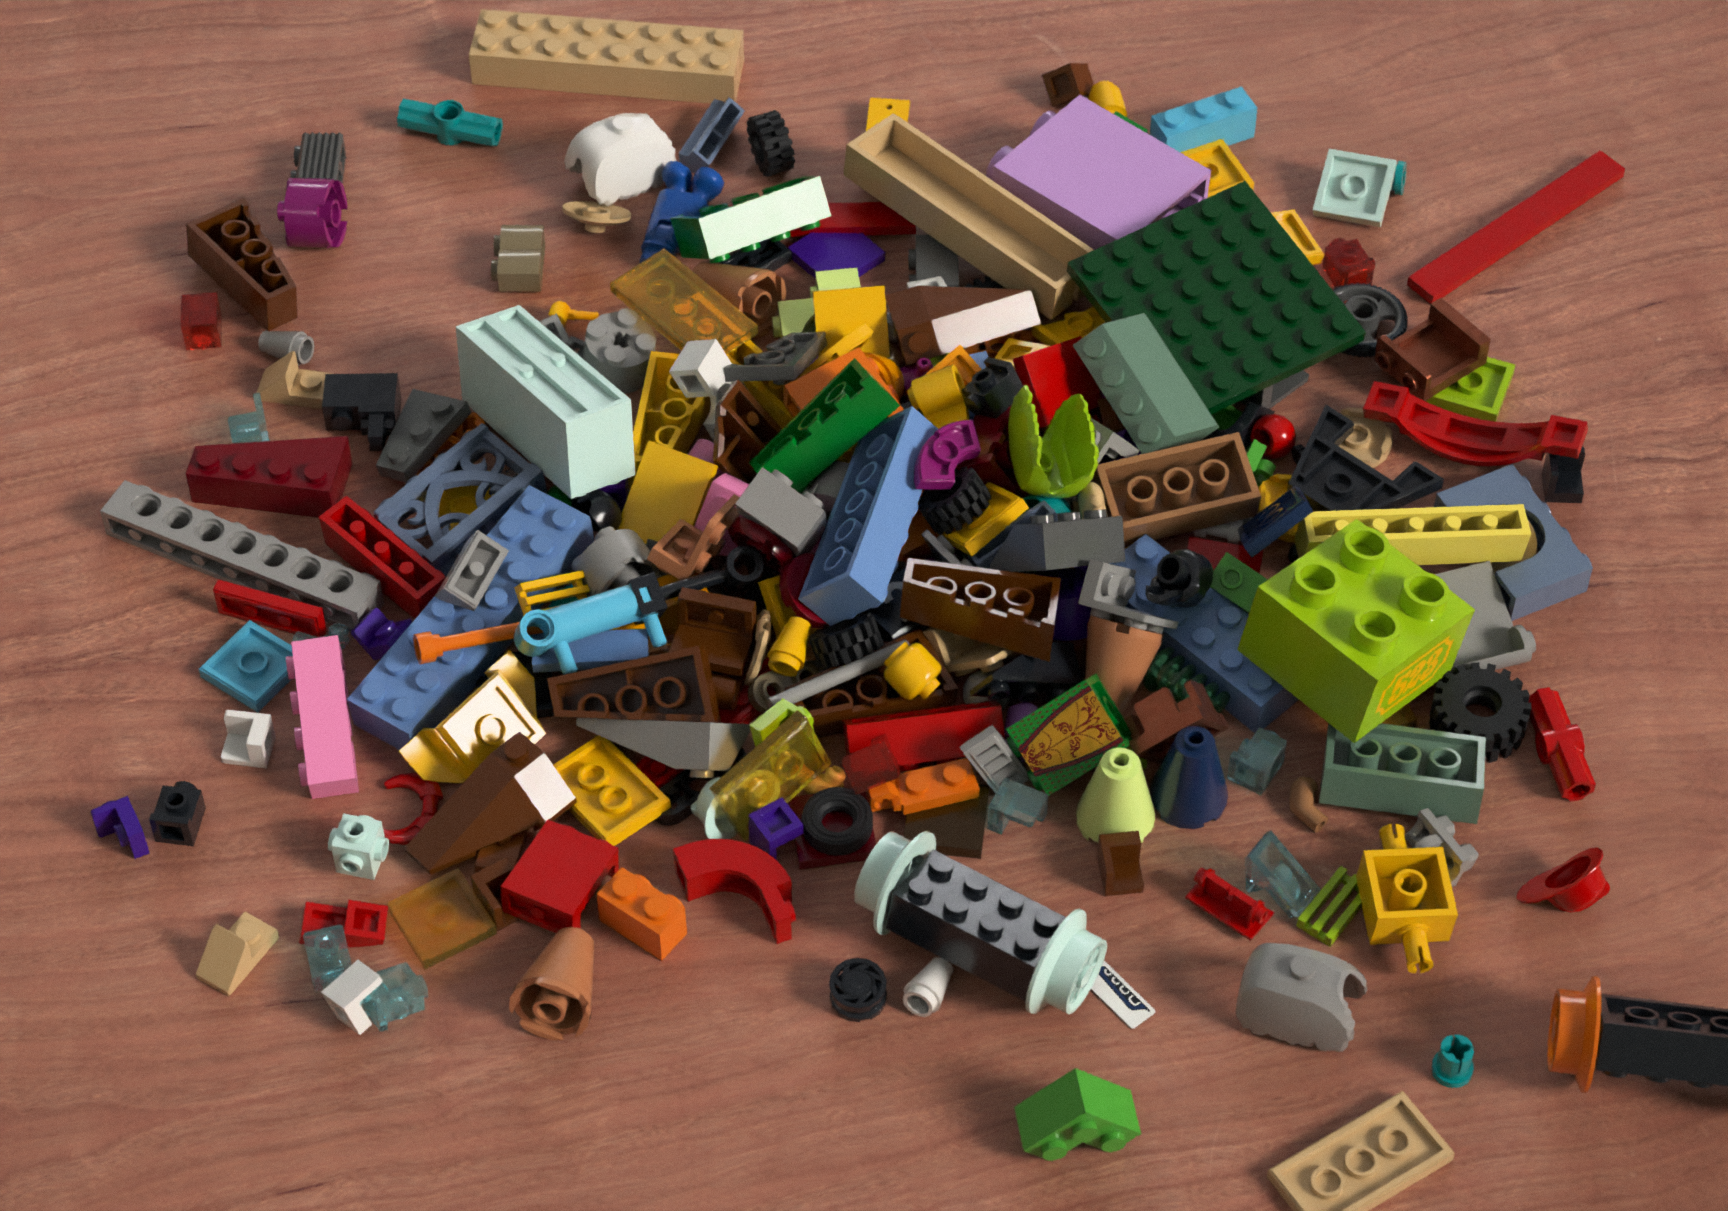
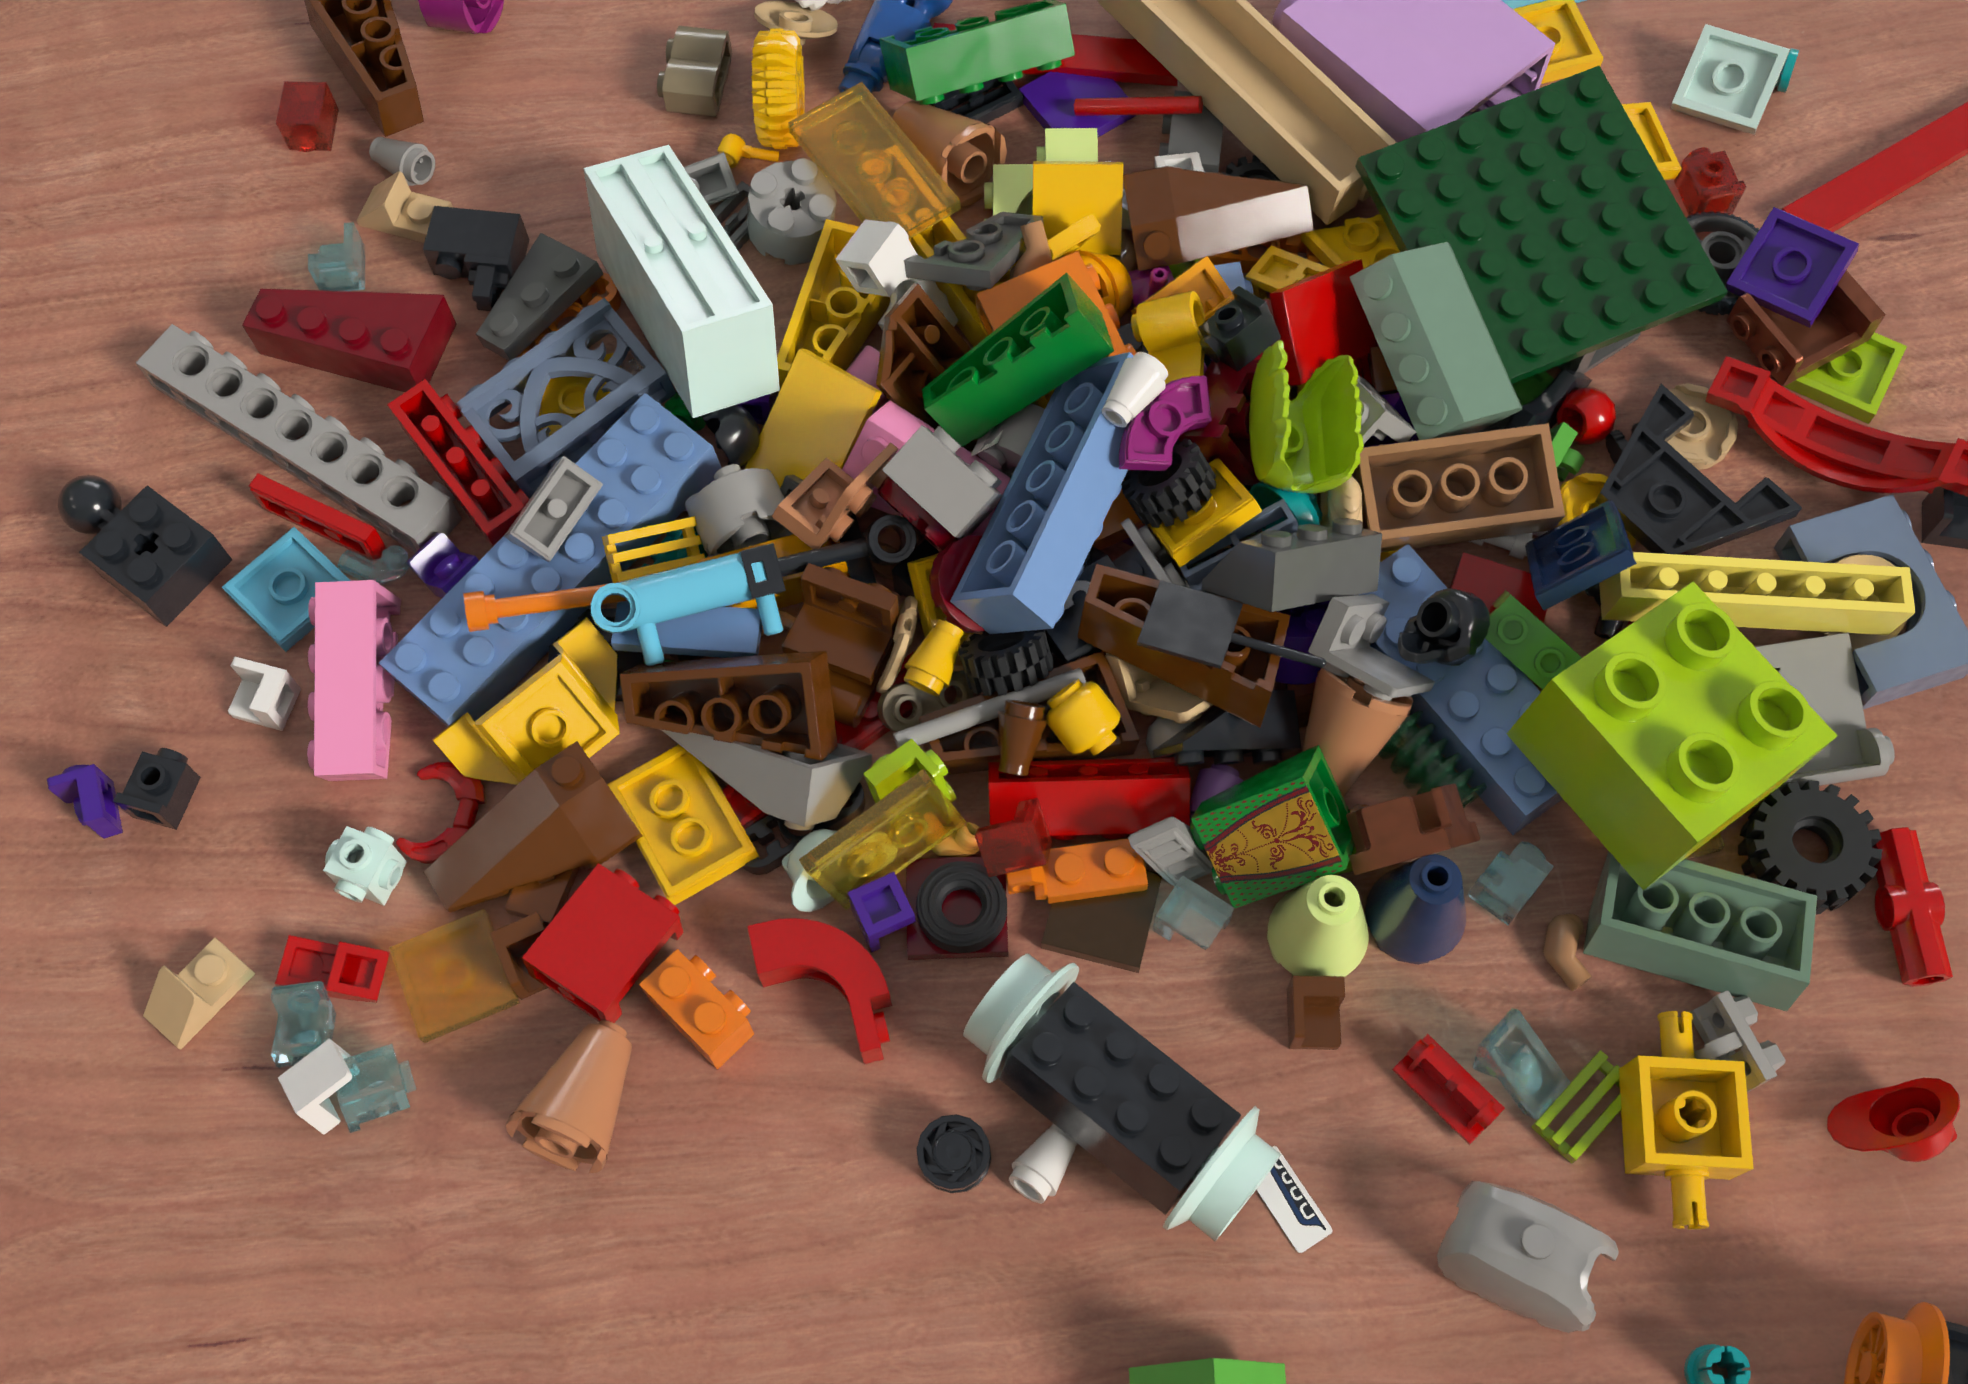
camera: 10 degrees right, 15 degrees up
(135, 649) = (145, 548): none -> black brick
(594, 261) = (777, 86): none -> yellow gear
(824, 349) = (1036, 252): none -> medium nougat arm
(865, 688) = (1019, 735): none -> reddish brown cone
(887, 248) = (1138, 105): none -> red bar
(920, 428) = (1135, 387): none -> white cone
(997, 589) = (1202, 627): none -> black piece
(1415, 312) = (1792, 266): none -> dark purple tile

